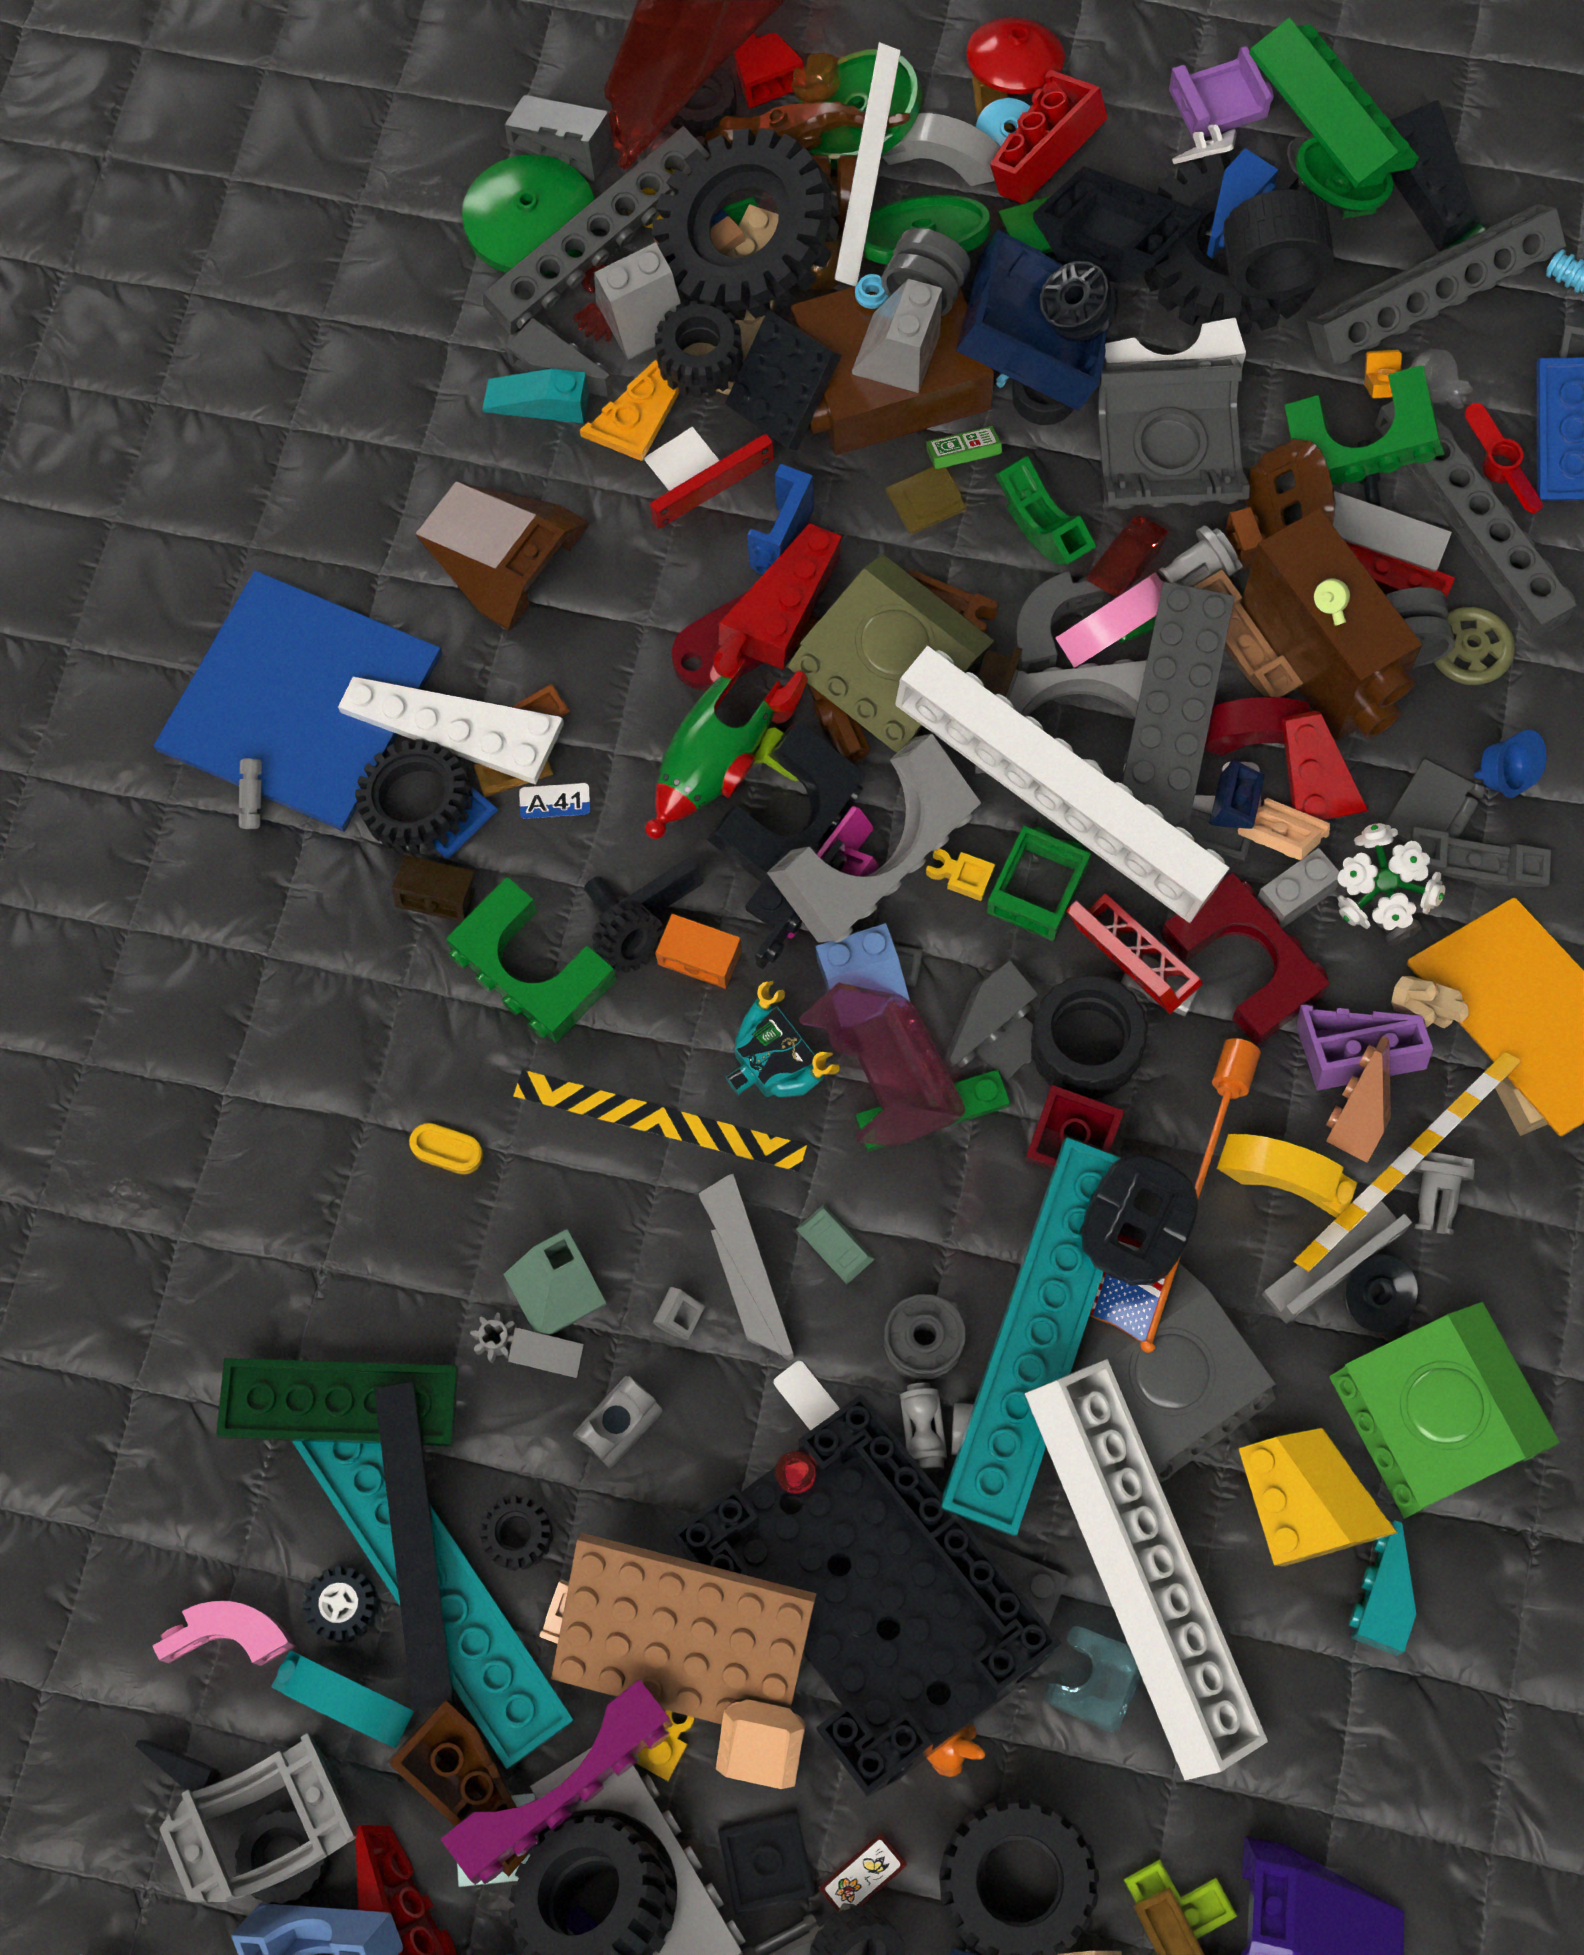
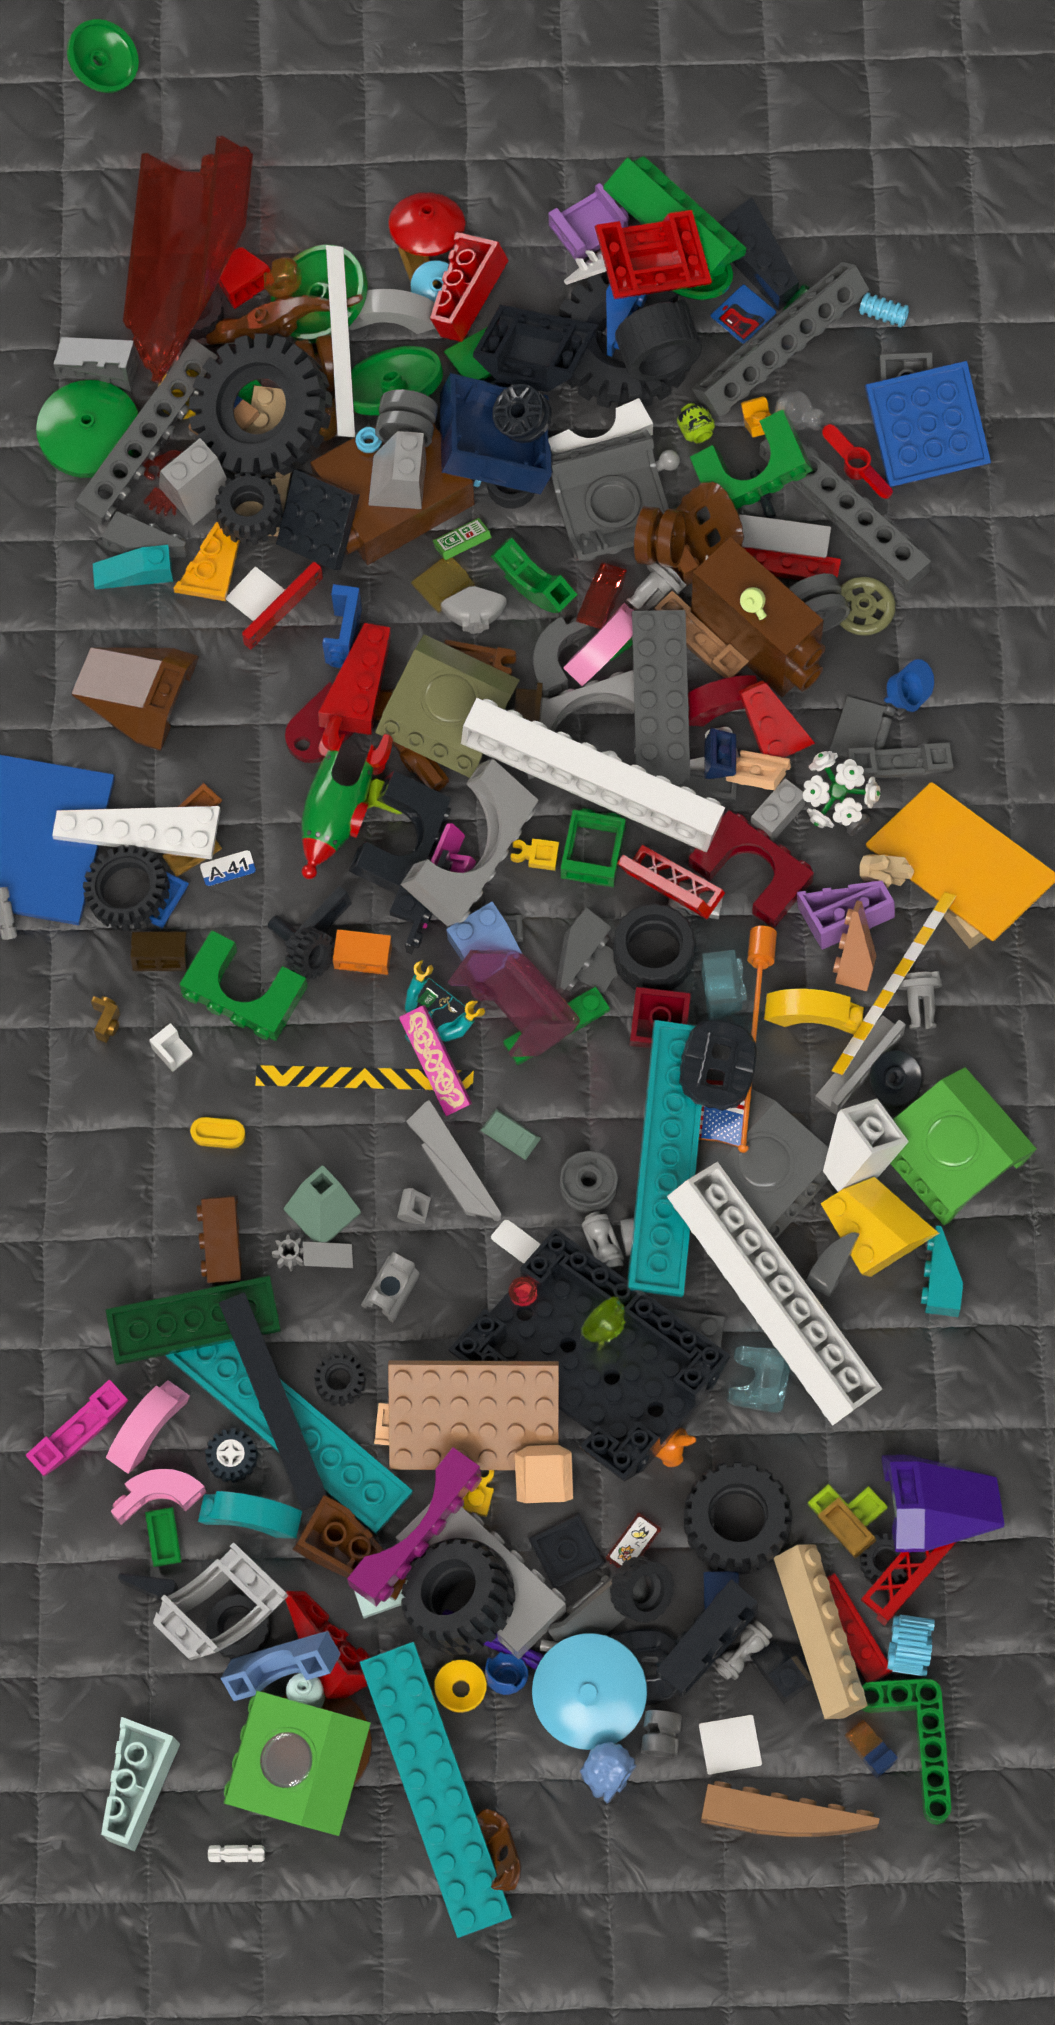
camera: 15 degrees left, 0 degrees up
(145, 1516) = (78, 1430): none -> dark pink slope
(218, 1697) = (163, 1537): none -> green tile
(234, 1530) = (143, 1425): none -> bright pink arch
(343, 964) = (108, 1022): none -> pearl gold bracket
(406, 1296) = (220, 1239): none -> reddish brown wedge
(414, 1019) = (170, 1047): none -> white panel
(757, 1120) = (435, 1060): none -> dark pink tile
(896, 1548) = (605, 1321): none -> clear neon green piece
(957, 537) = (474, 608): none -> light grey piece
(1170, 1107) = (722, 983): none -> clear light blue slope
(1223, 493) = (660, 536): none -> reddish brown wheel
(1234, 1540) = (831, 1265): none -> dark grey piece
(1254, 406) = (668, 460): none -> light grey bar
(1296, 139) = (653, 256): none -> red slope
(1301, 366) = (695, 423): none -> lime head
(1316, 1380) = (862, 1144): none -> white slope
(1393, 245) = (743, 314): none -> sticker

